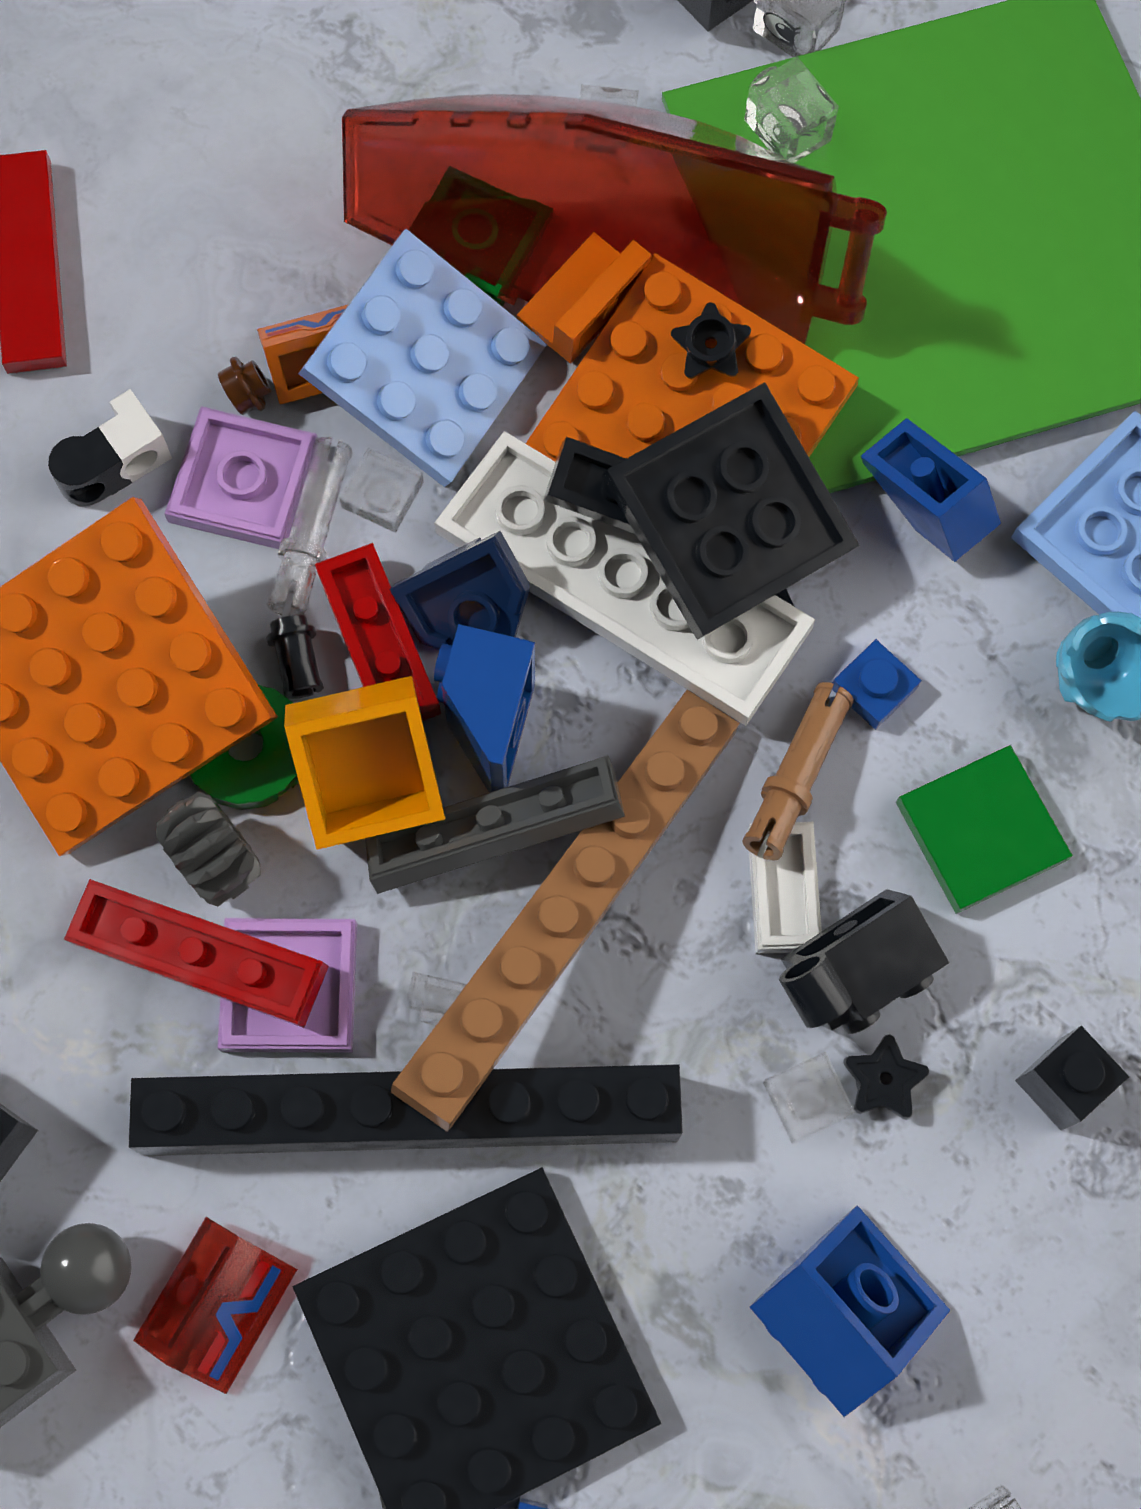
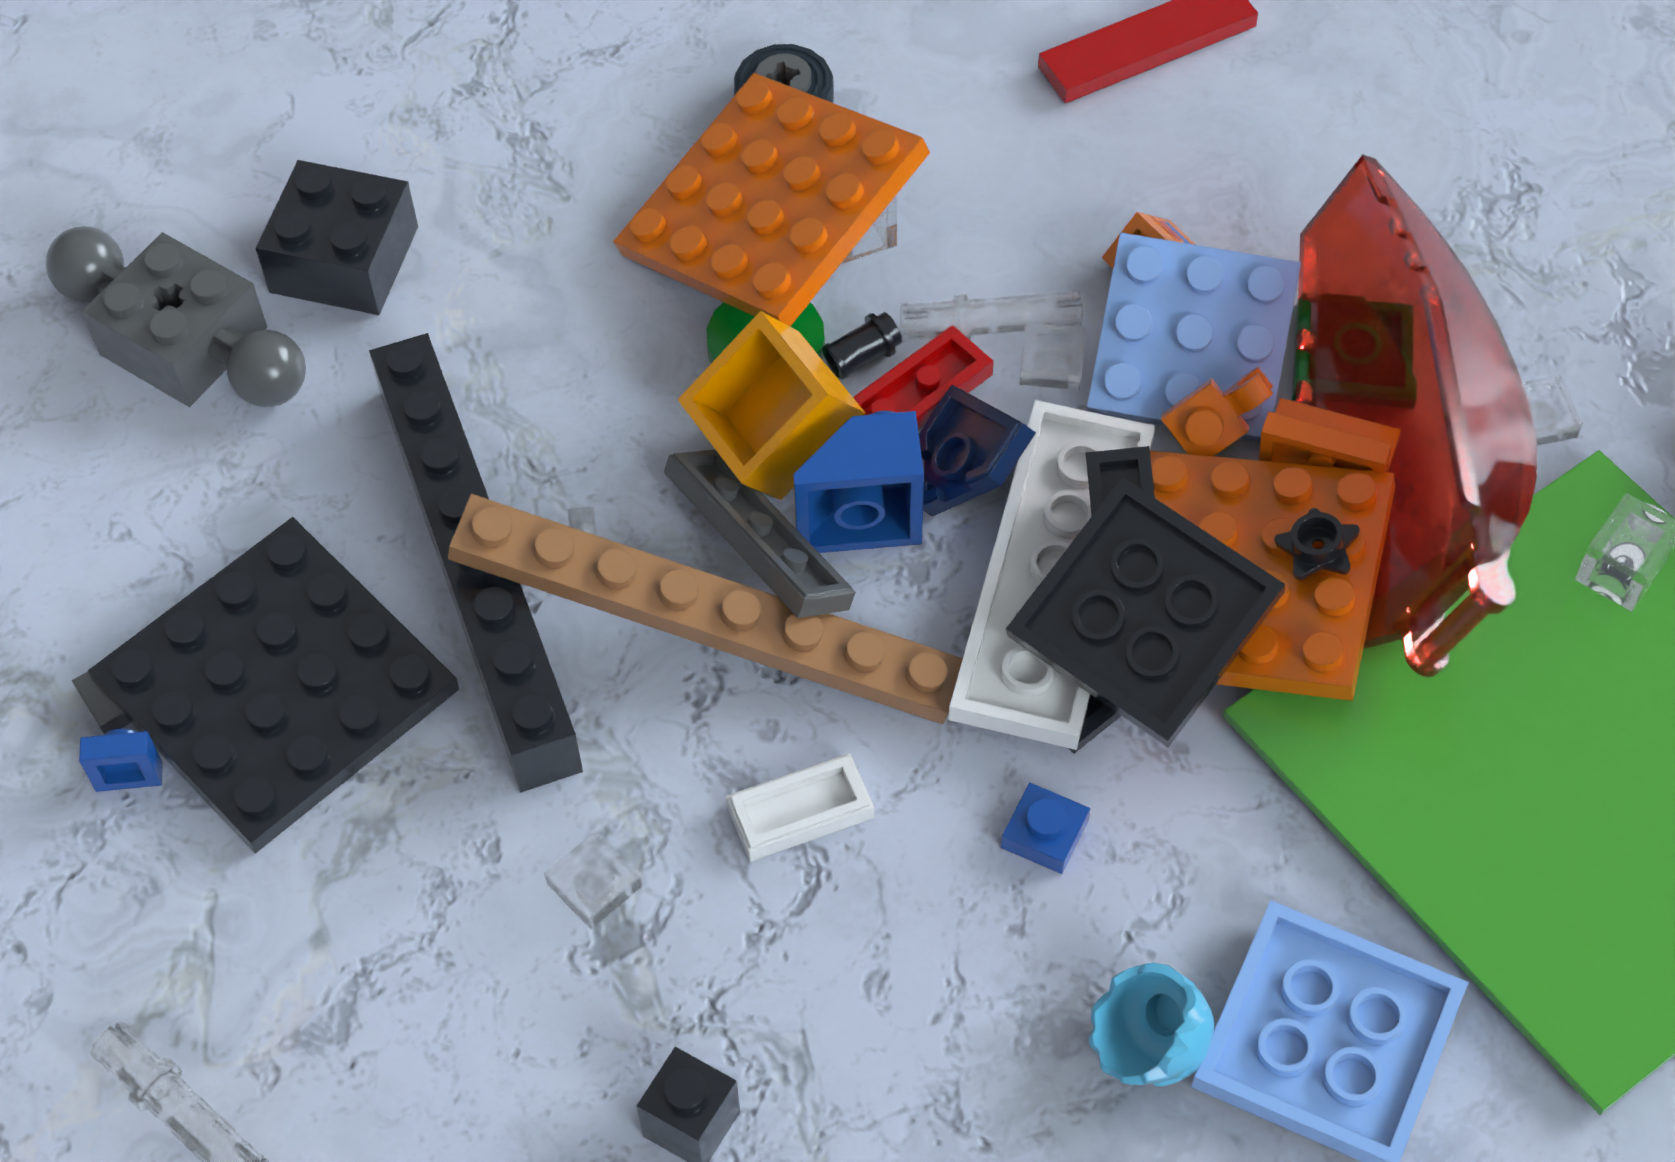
camera: 75 degrees right, 15 degrees down
(110, 455) = (991, 152): leg -> none
(197, 953) = (560, 361): red tile -> none
(207, 849) = (651, 329): dark grey gear -> none
(214, 1306) = (262, 477): clear red panel -> none
(241, 478) = (1018, 250): lavender tile -> none
(244, 385) = (1101, 221): reddish brown plate -> none
(332, 1015) = (561, 442): lavender tile -> none
(520, 377) = (1211, 418): none -> orange plate
(788, 791) = (919, 773): medium nougat pin -> none
(851, 1311) = (400, 971): blue slope -> none
(862, 964) = (734, 877): black hinge -> none
(873, 1093) = (638, 964): black plate -> none
(933, 489) = (1270, 806): blue slope -> none
(983, 829) = (931, 970): green tile -> none

